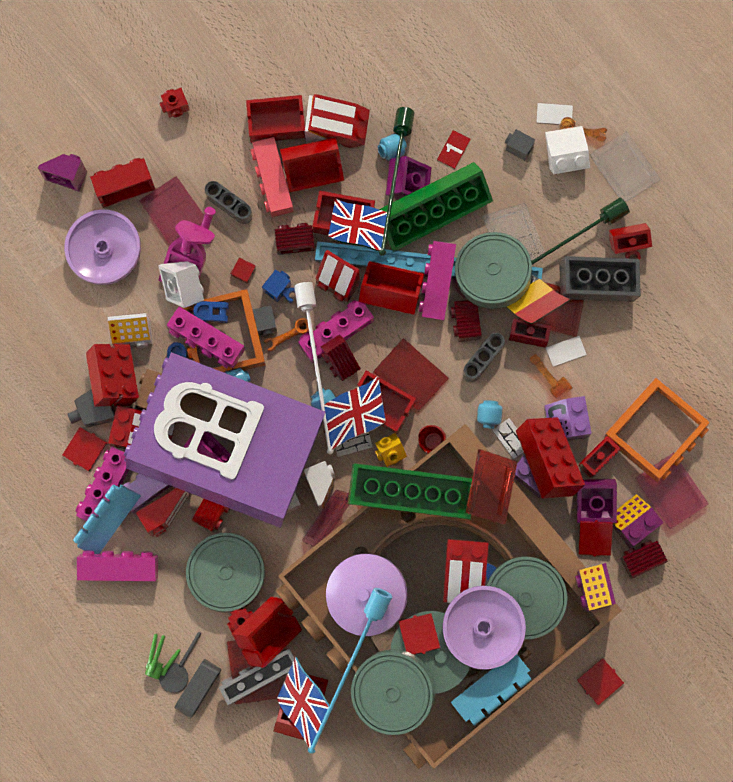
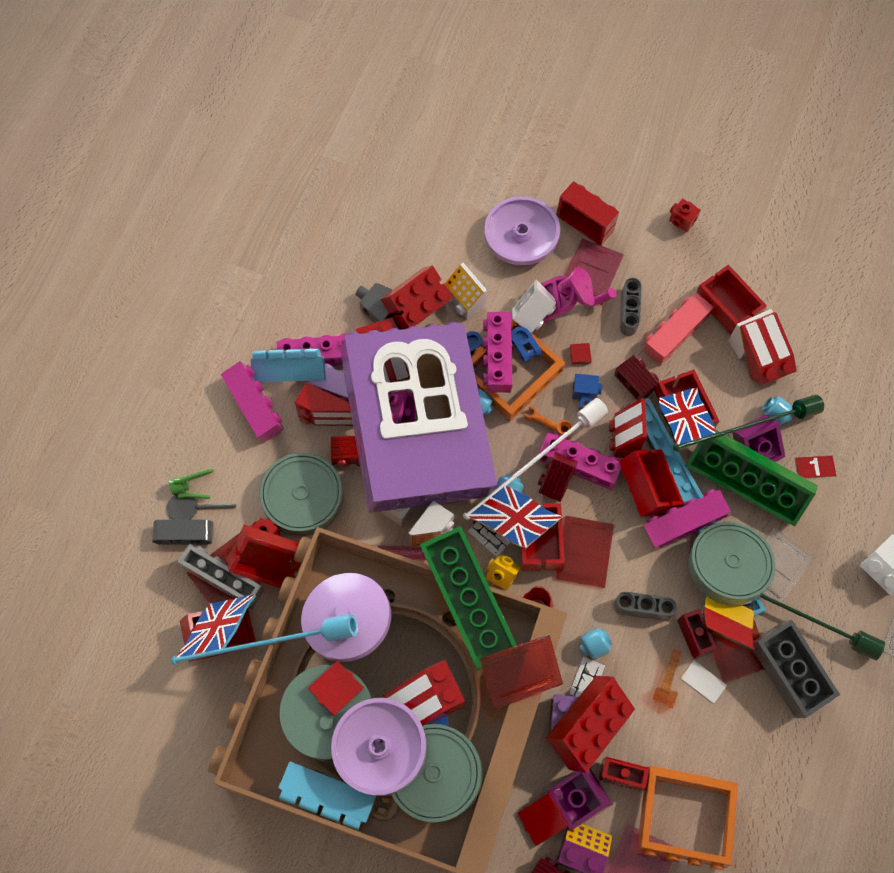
camera: 55 degrees right, 10 degrees down
(64, 171) = (565, 164): magenta slope -> none
(84, 449) = (340, 318): red piece -> none
(265, 321) = (548, 396): dark grey brick -> none
(312, 164) = (712, 351): red piece -> none
(393, 692) = (265, 696): sand green brick -> none
(467, 321) = (668, 570): dark red brick -> none
(519, 144) = (864, 520): dark grey brick -> none
(572, 416) = (644, 723): medium lavender slope -> none
(595, 587) = (485, 836): slope -> none
(630, 239) = (852, 677): red brick -> none

